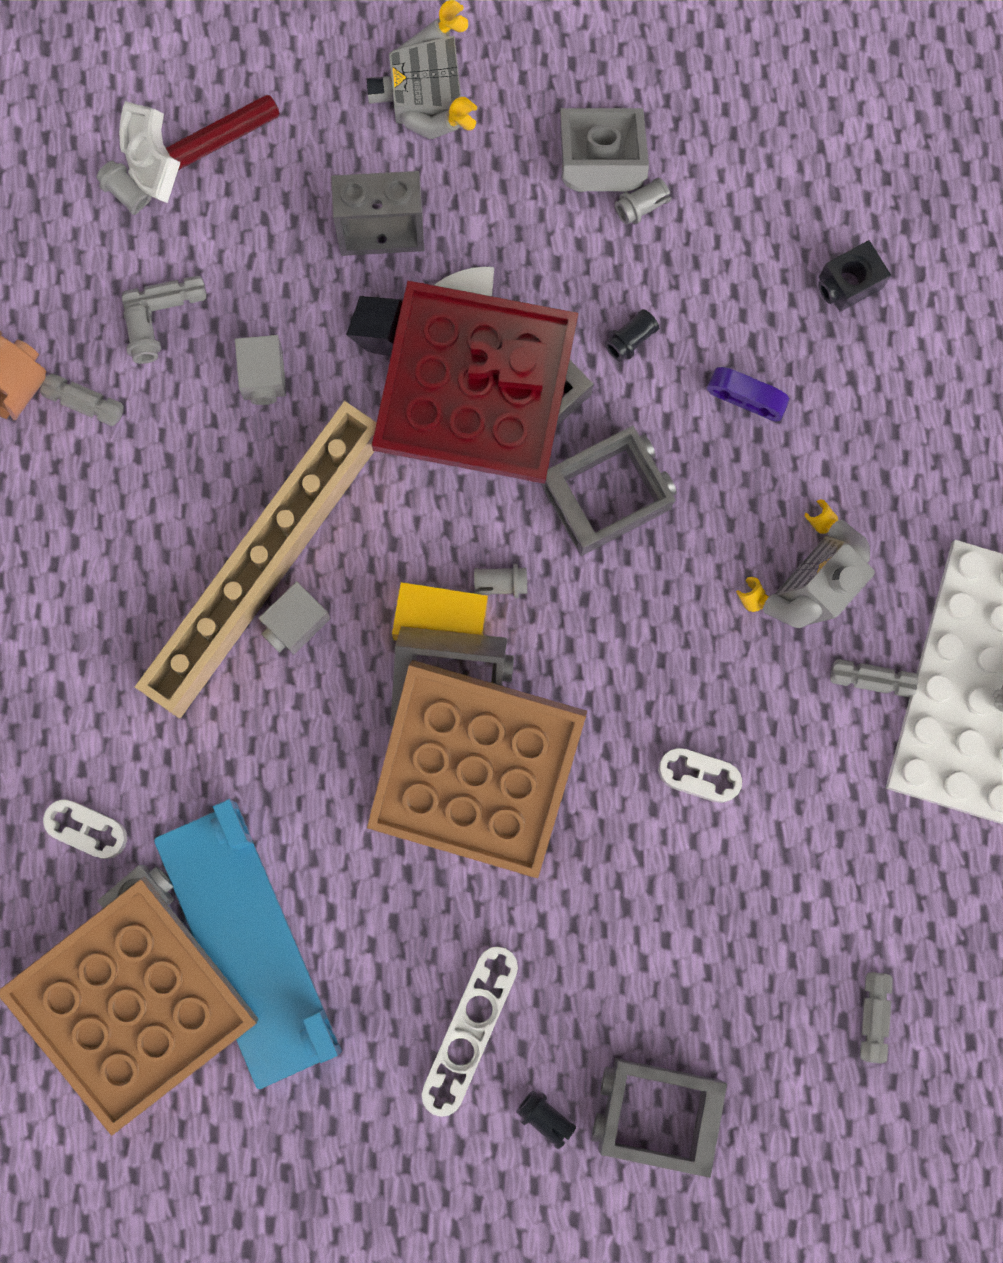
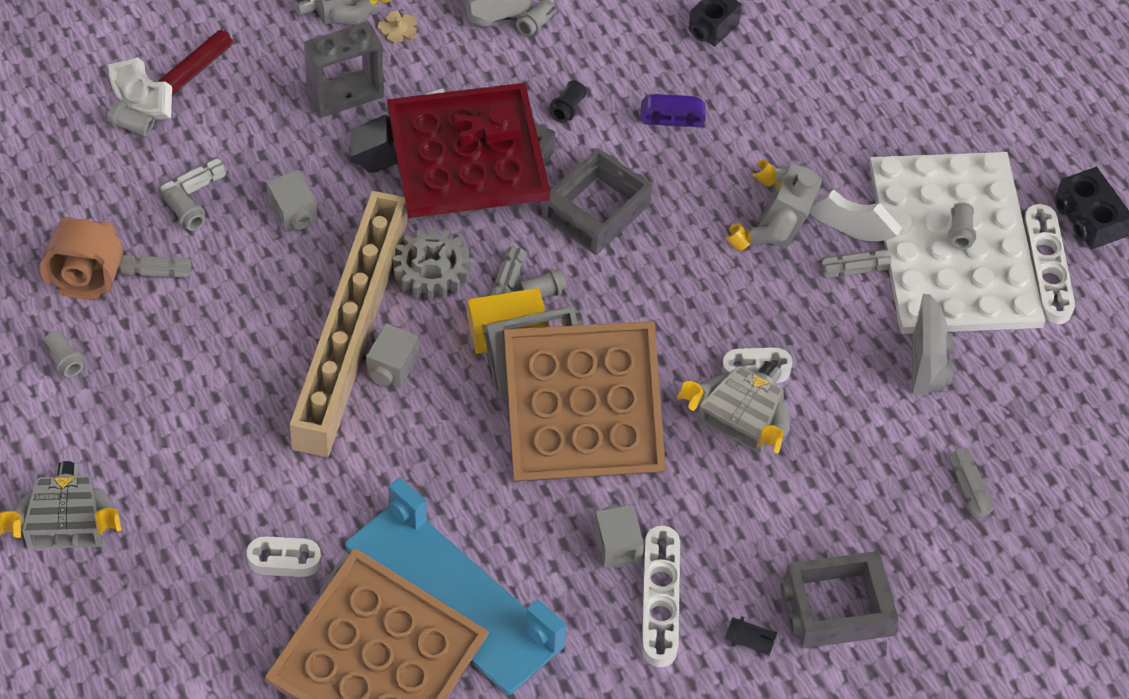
camera: 20 degrees left, 25 degrees down
(369, 515) = (431, 264): none -> light grey gear
(451, 942) = (618, 536): none -> light grey brick
(466, 554) = (509, 271): none -> light grey axle
(478, 157) = (398, 27): none -> tan plant
(659, 834) = (743, 405): none -> torso
(899, 626) = (854, 219): none -> white tile
(903, 839) = (930, 349): none -> light grey slope

